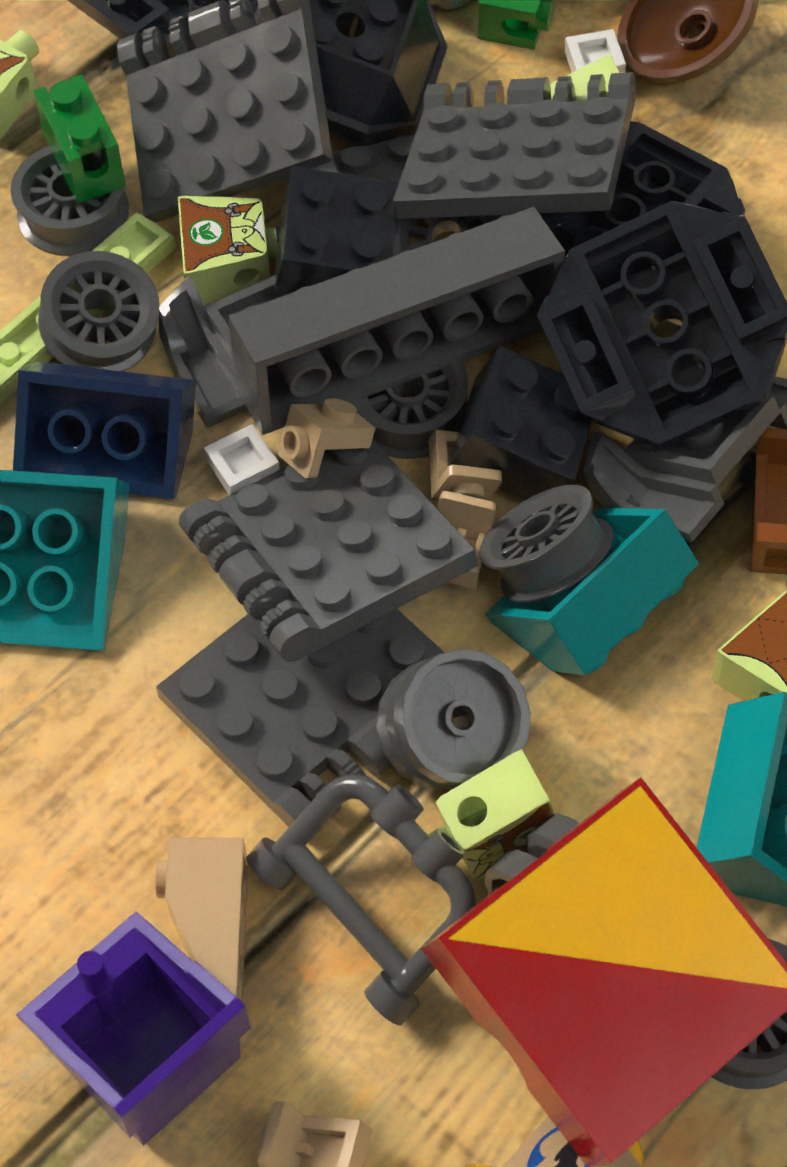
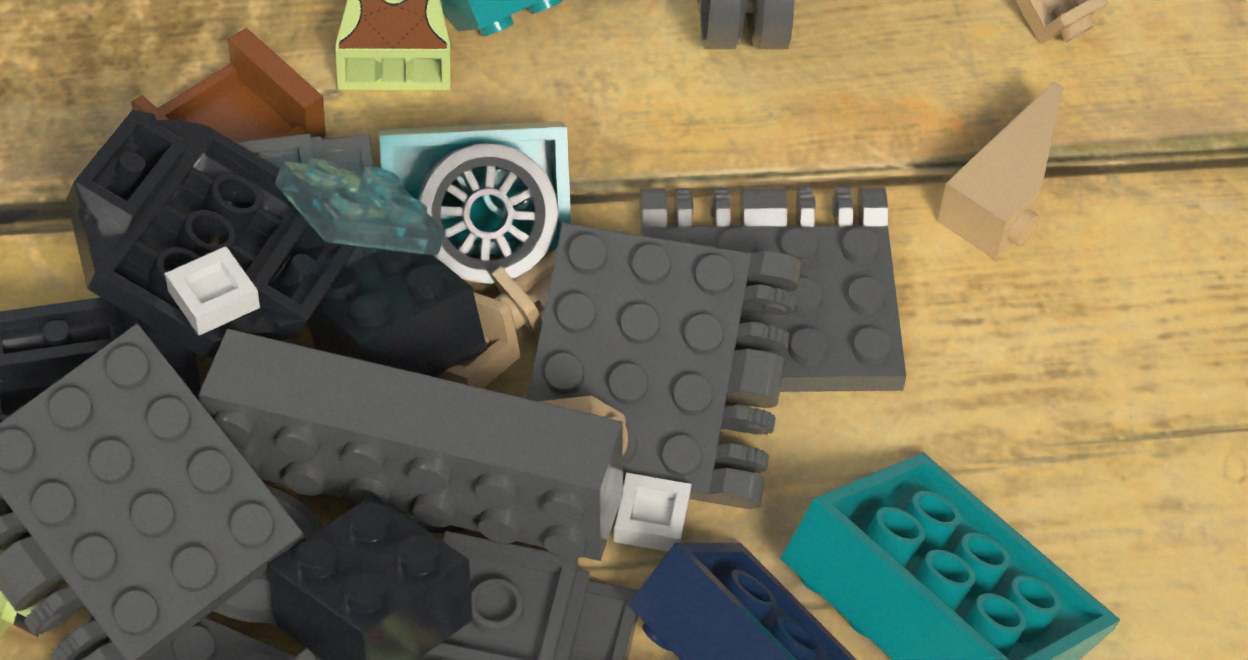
camera: 145 degrees left, 5 degrees down
(139, 1026) = (1140, 96): dark purple piece -> none
(433, 855) = (820, 87): dark grey bar -> none
(463, 685) = (707, 139): dark grey wheel -> none
(494, 812) = (741, 74): yellowish green torso -> none
(594, 250) = (212, 290): none -> white plate
(606, 431) = (360, 207): none -> clear light blue plate

